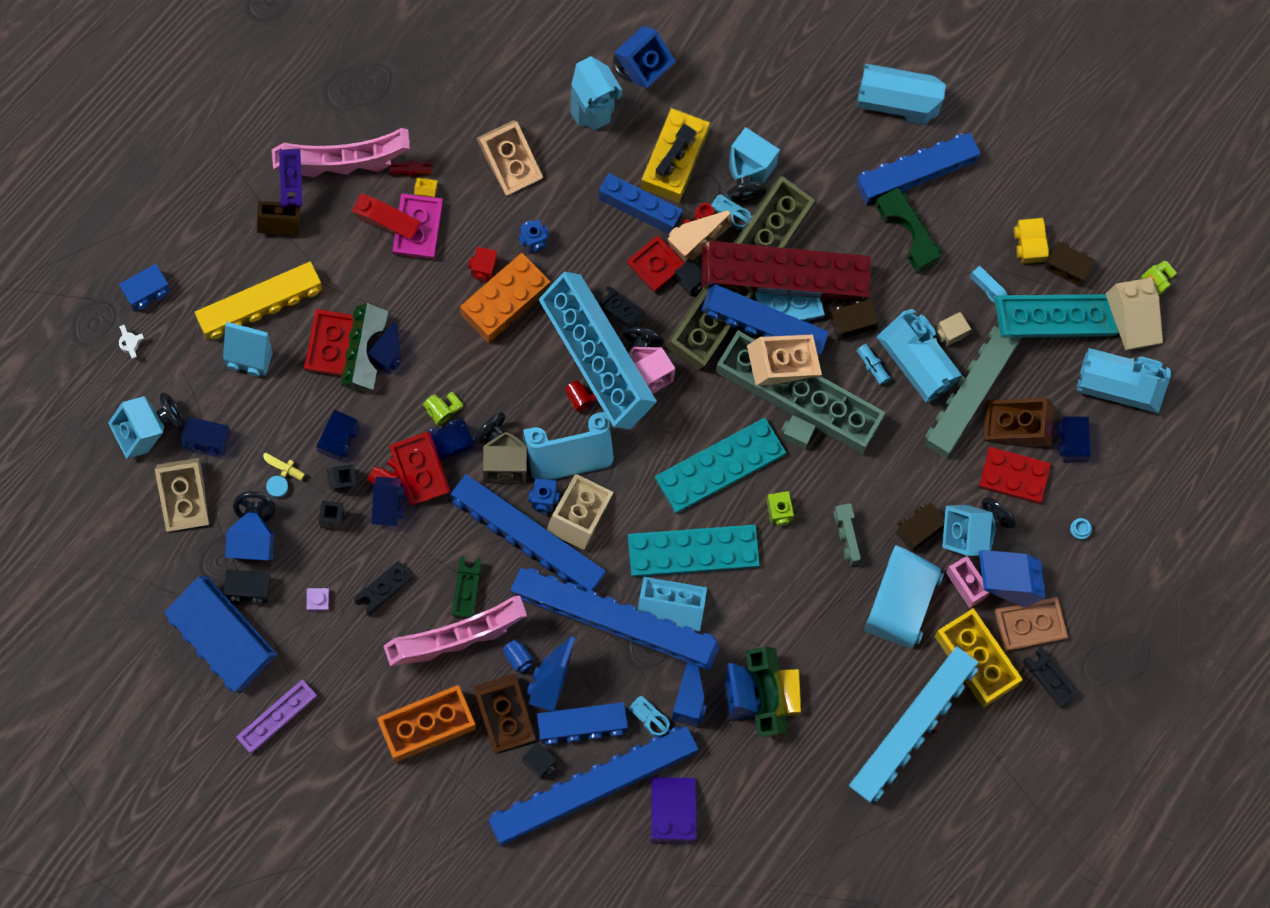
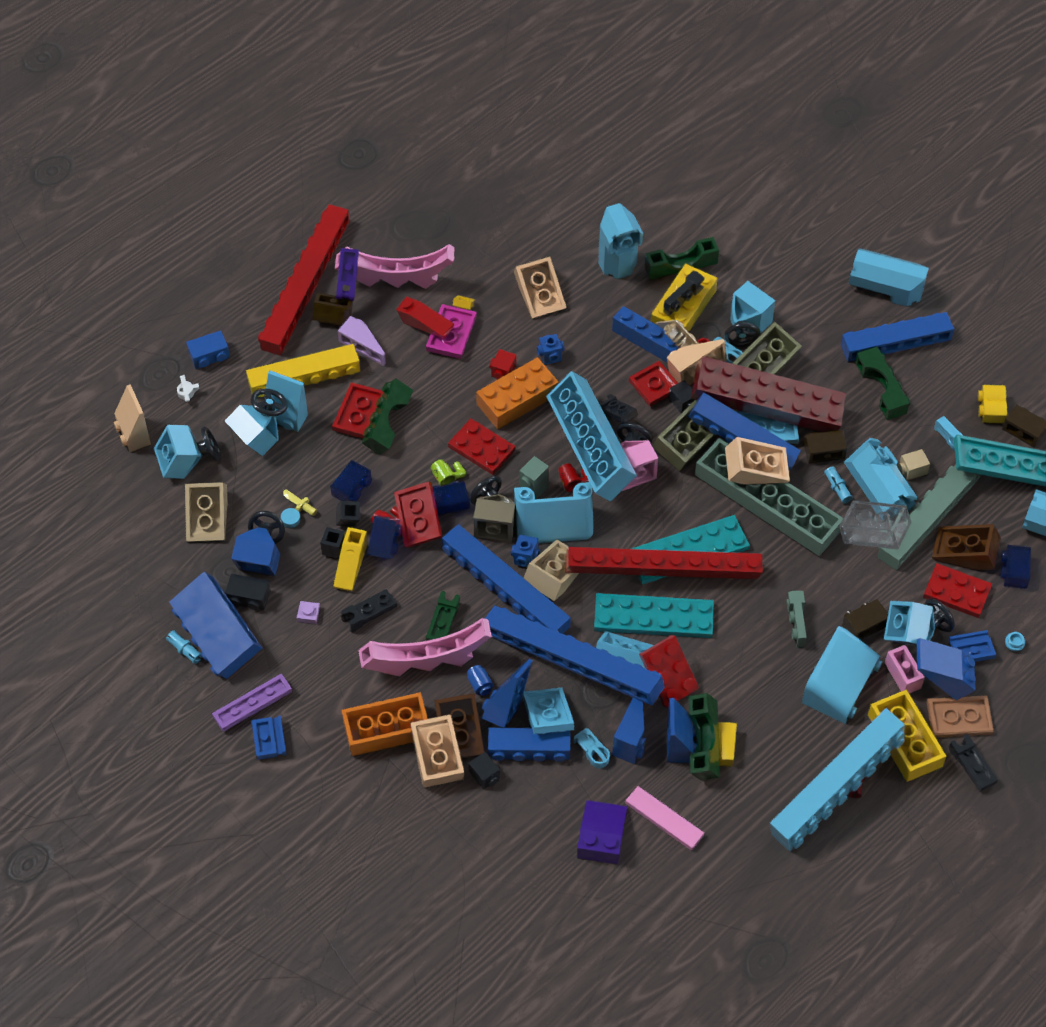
camera: 15 degrees right, 15 degrees down
(77, 397) = (131, 421): none -> light nougat slope
(189, 661) = (184, 647): none -> medium azure pin
(205, 436) = (236, 469): clear blue brick -> none
(222, 384) = (258, 423): none -> medium azure piece
(238, 180) = (303, 280): none -> red brick
(302, 755) = (268, 737): none -> blue plate
(312, 247) = (357, 333): none -> lavender slope
(353, 532) = (350, 558): none -> yellow slope
(386, 350) = (406, 422): clear blue slope -> none
(410, 168) = (453, 287): dark red pin -> none
(474, 368) = (481, 446): none -> red plate
(486, 748) = (437, 751): none -> light nougat slope
(540, 406) = (535, 476): none -> sand green brick
(592, 786) = (530, 798): blue brick -> none
(597, 684) = (548, 710): none -> medium azure plate
(643, 57) = (666, 221): blue piece -> none
(648, 107) = (701, 254): none -> dark green arch
(673, 205) = (677, 333): none -> tan hinge
(696, 492) = (663, 563): none -> red brick
(720, 617) = (671, 663): none -> red plate
(736, 785) = (664, 818): none -> bright pink tile
(780, 508) = (737, 589): lime brick -> none
(798, 432) = (763, 529): sand green brick -> none
(920, 415) = (875, 524): none -> clear brick
(1037, 541) = (975, 644): none -> blue plate

